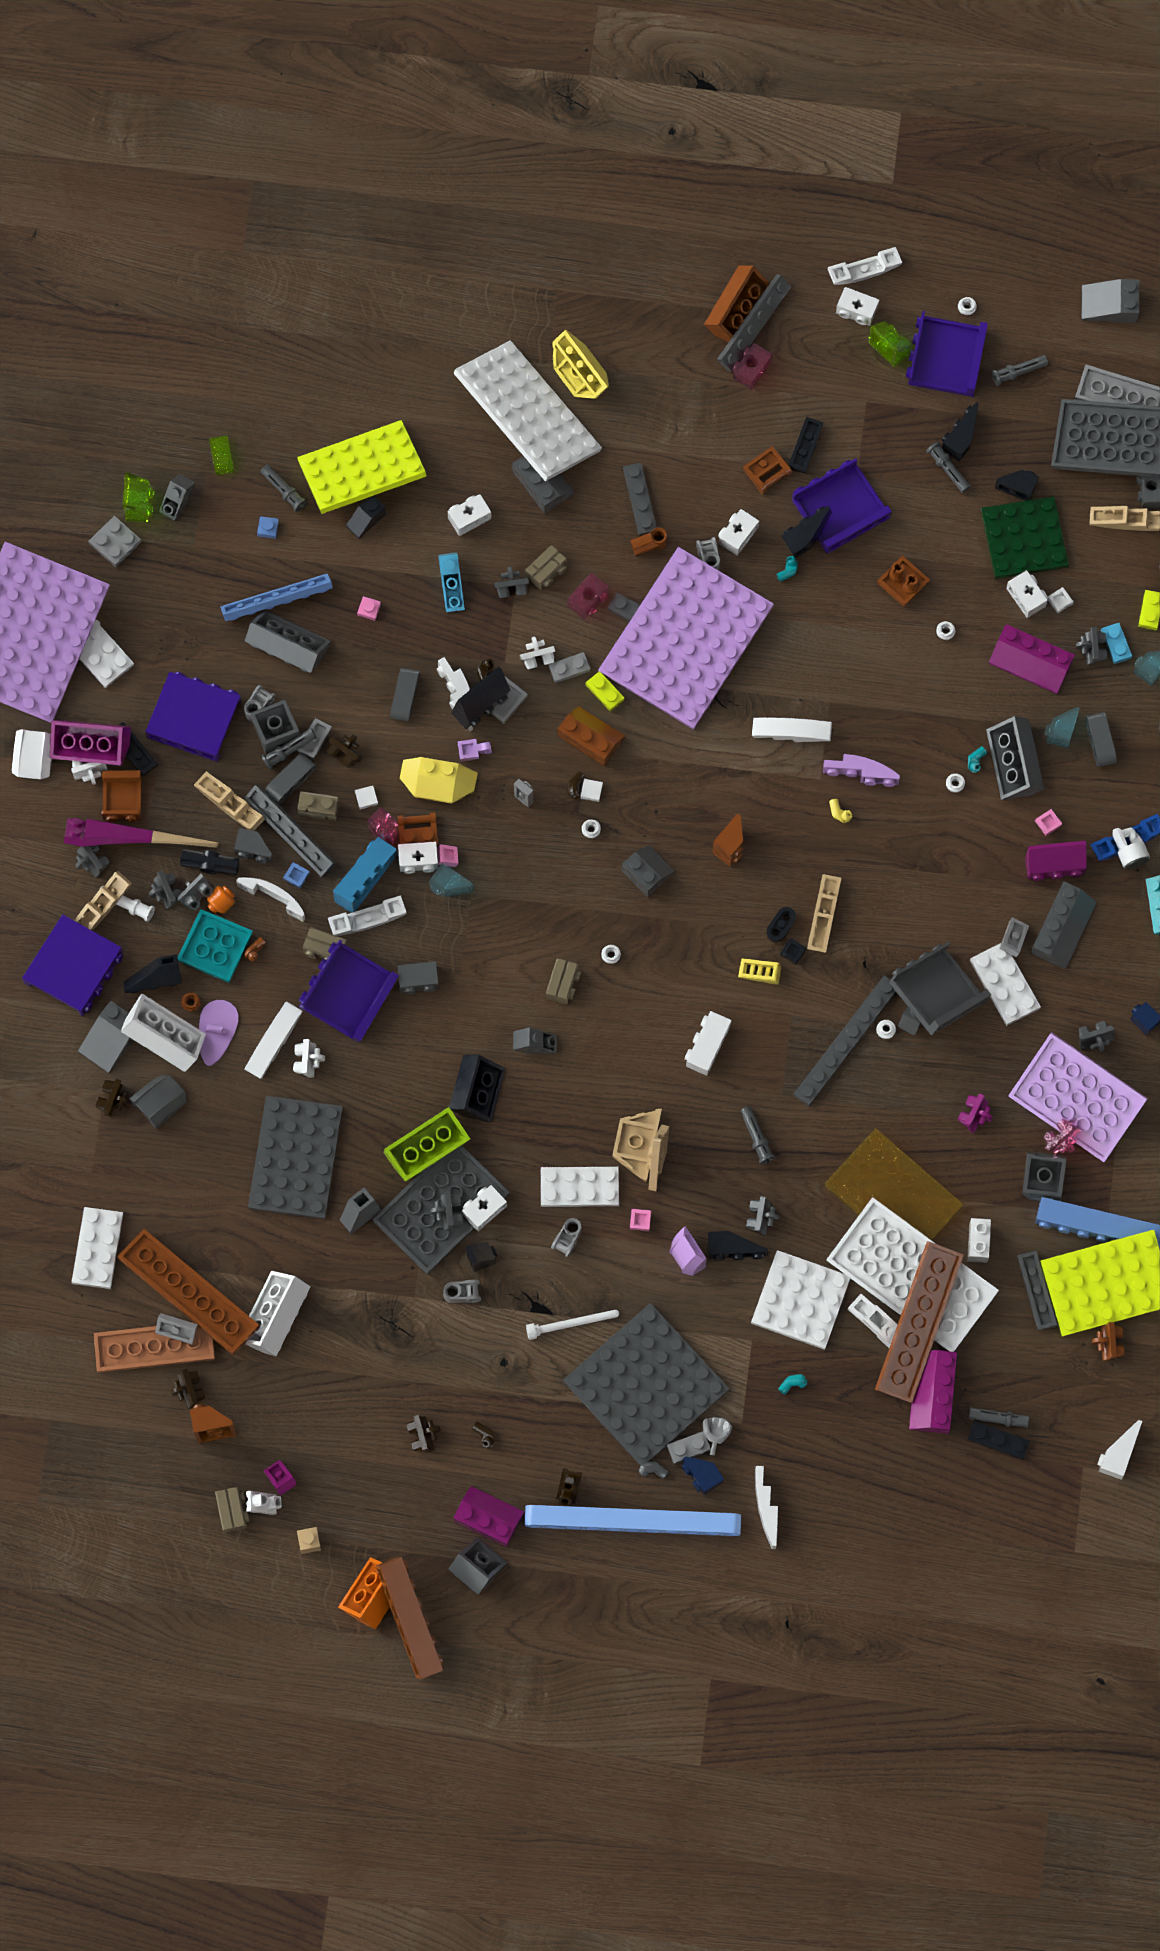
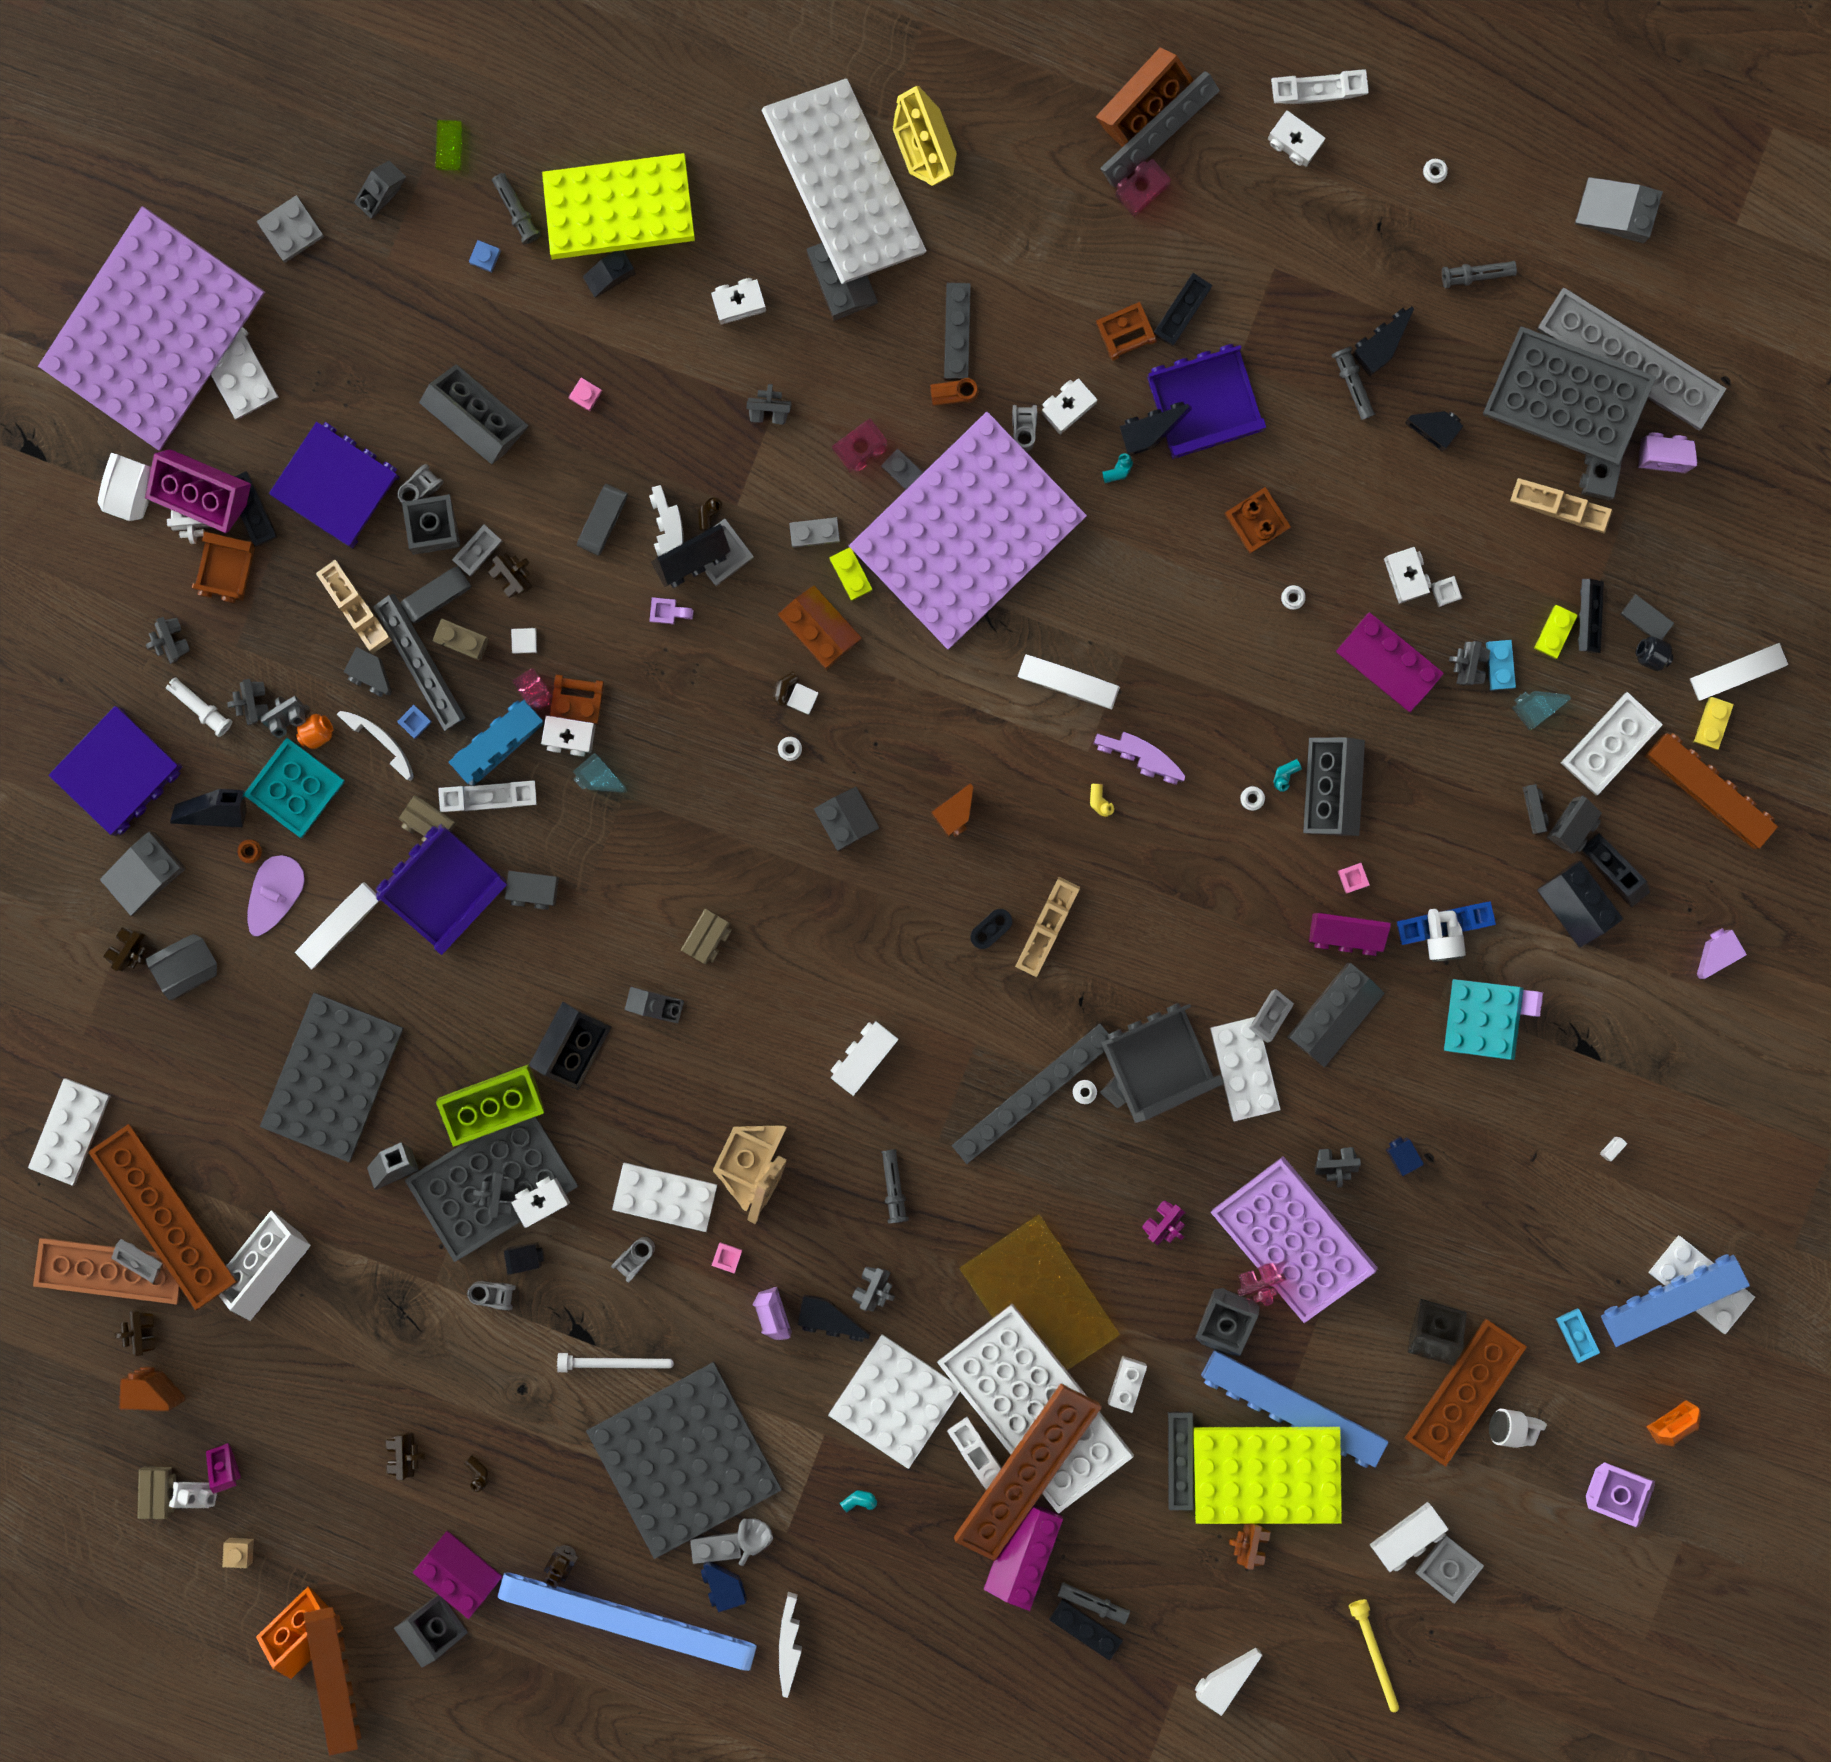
camera: 15 degrees right, 15 degrees up
(100, 832) = (187, 611): magenta plate -> none
(103, 901) = (168, 701): tan slope -> none
(137, 498) = (327, 180): clear neon green slope -> none
(163, 1033) = (203, 889): white slope -> none
(209, 862) = (312, 679): black piece -> none
(251, 952) = (341, 802): dark orange arm -> none
(276, 597) = (472, 353): medium blue plate -> none
(309, 735) = (430, 557): dark grey pin -> none
(310, 1058) = (376, 959): white hips -> none
(437, 779) = (616, 641): light yellow wedge -> none
(447, 855) = (605, 741): bright pink plate -> none
(451, 582) = (695, 384): medium azure slope -> none
(523, 792) = (717, 685): light grey plate -> none
(529, 658) = (768, 507): white hips -> none
(546, 568) = (817, 395): dark tan brick -> none
(611, 948) = (774, 907): white plate -> none
(653, 1467) = (668, 1562): dark grey arm -> none
(768, 965) = (969, 989): light yellow slope -> none
(793, 951) = (997, 965): black tile -> none
(888, 342) = (1323, 198): clear neon green slope -> none
(946, 355) = (1391, 231): dark purple panel -> none
(1024, 537) = (1424, 498): dark green plate -> none
(1061, 728) = (1403, 761): clear light blue slope -> none
(1100, 739) = (1447, 787): dark grey beam -> none

